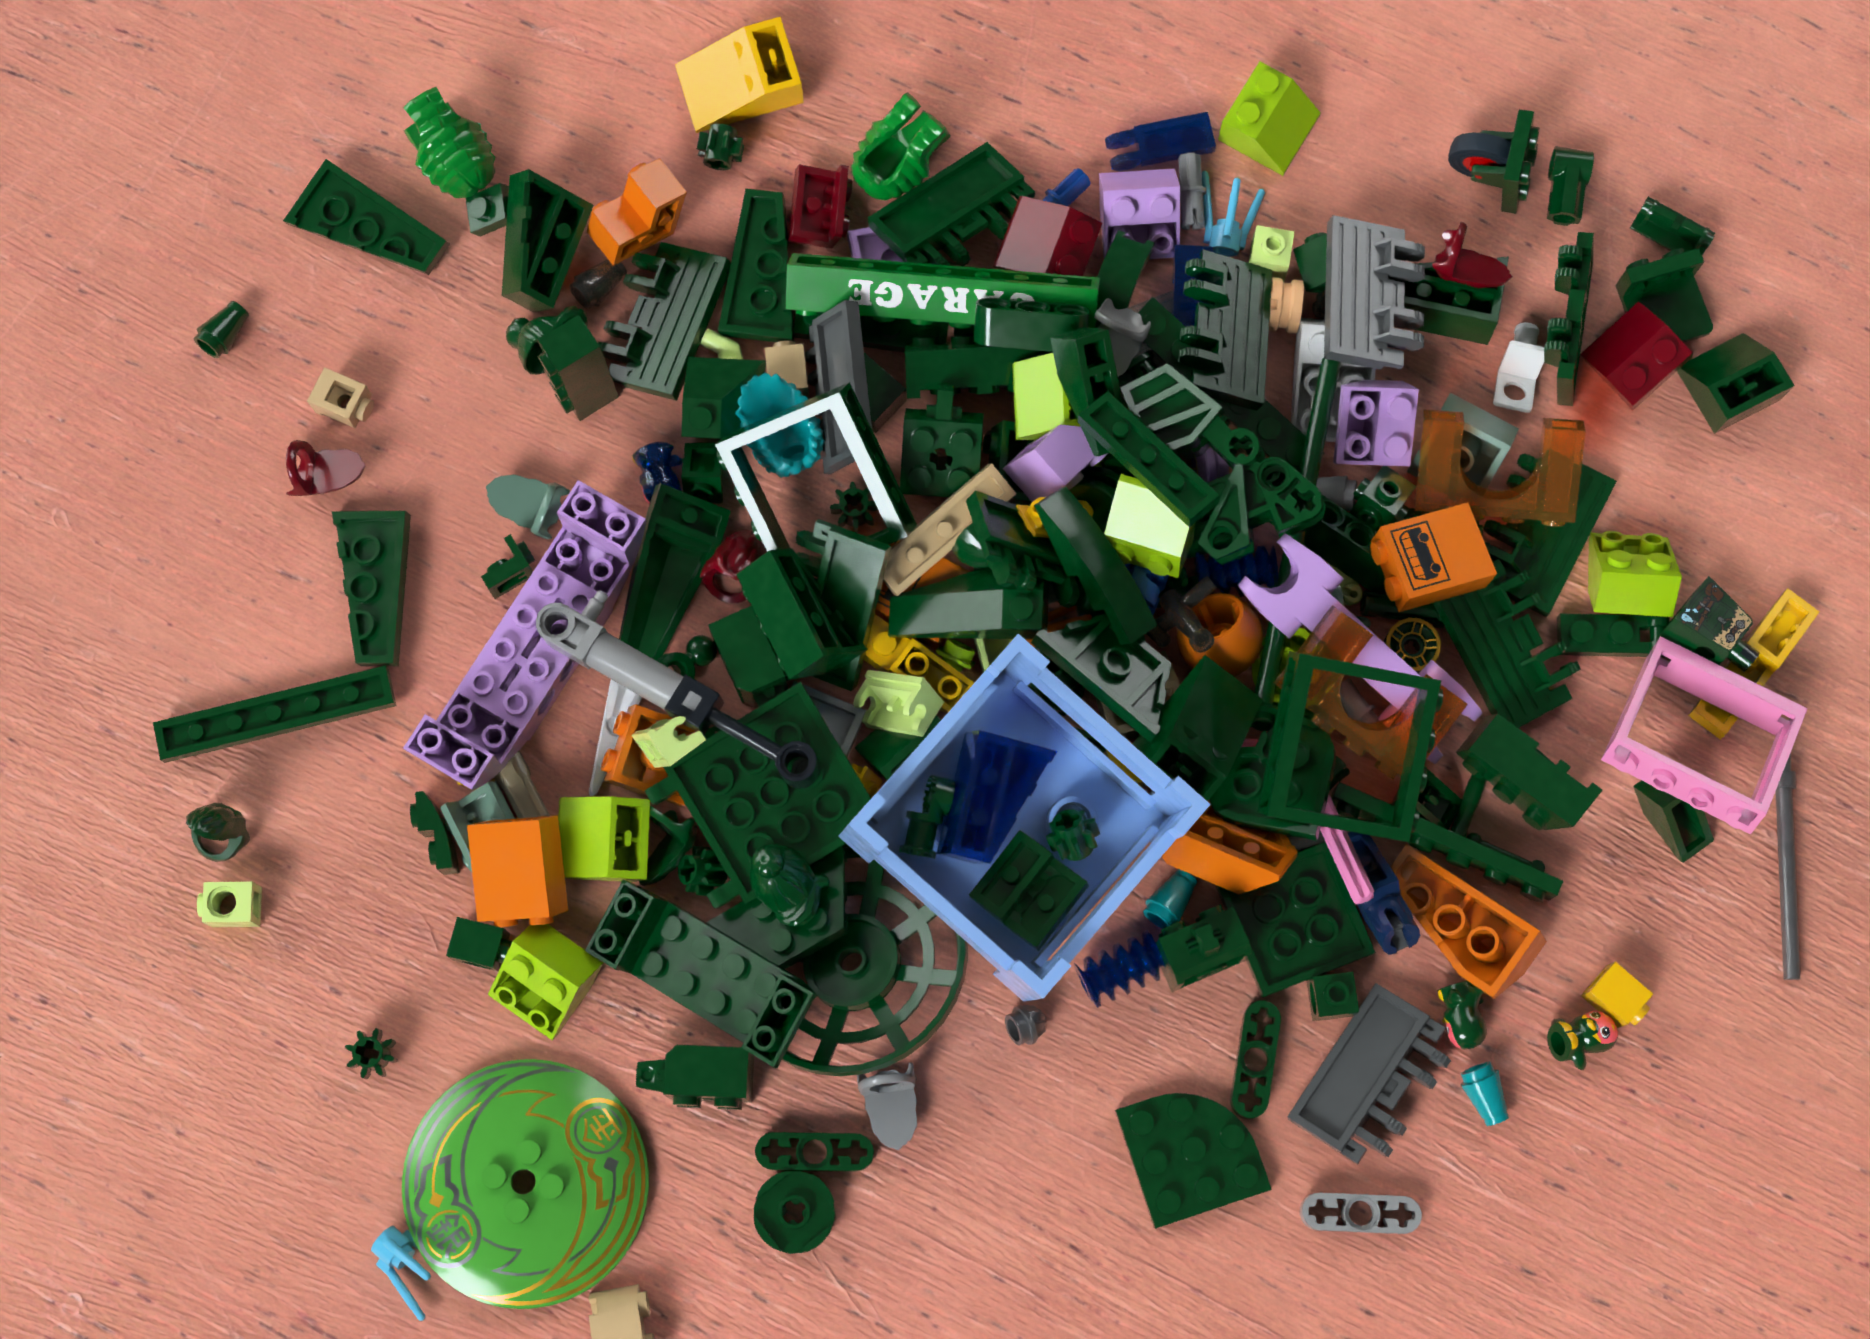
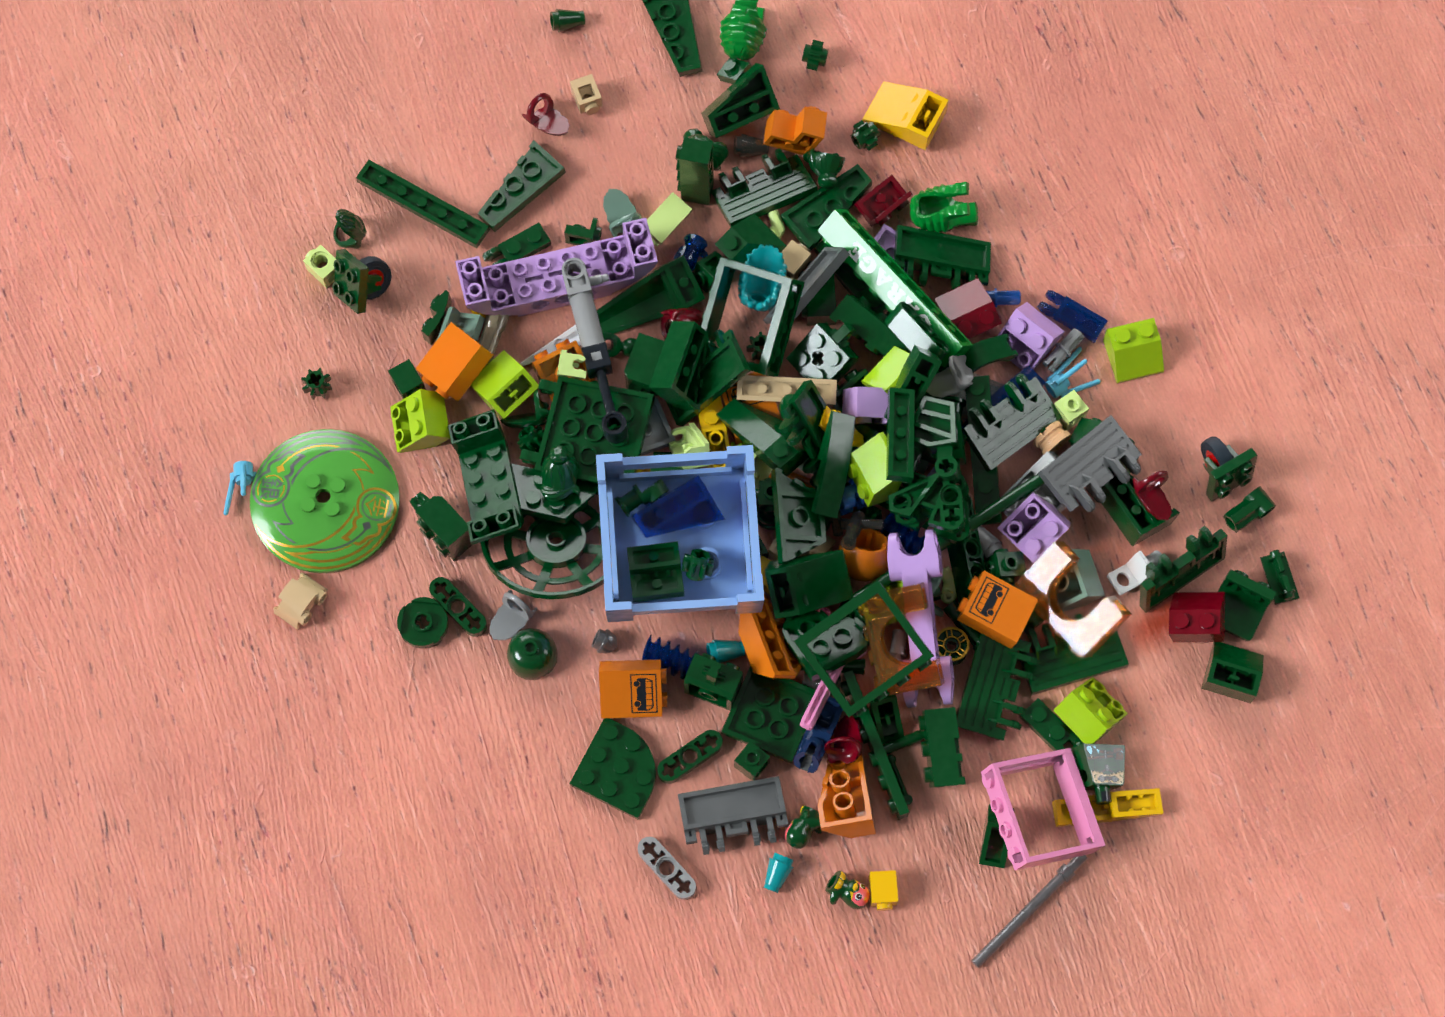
camera: 45 degrees right, 5 degrees down
(296, 882) = (359, 279): none -> dark green plate
(446, 655) = (520, 246): none -> dark green hinge
(565, 104) = (815, 55): none -> dark green gear
(590, 454) = (667, 218): none -> yellowish green hinge
(714, 224) = (825, 166): none -> dark green hair
(957, 1121) = (532, 654): none -> dark green cylinder
(1119, 1048) = (632, 688): none -> orange brick
(1417, 869) = (847, 742): none -> dark red piece

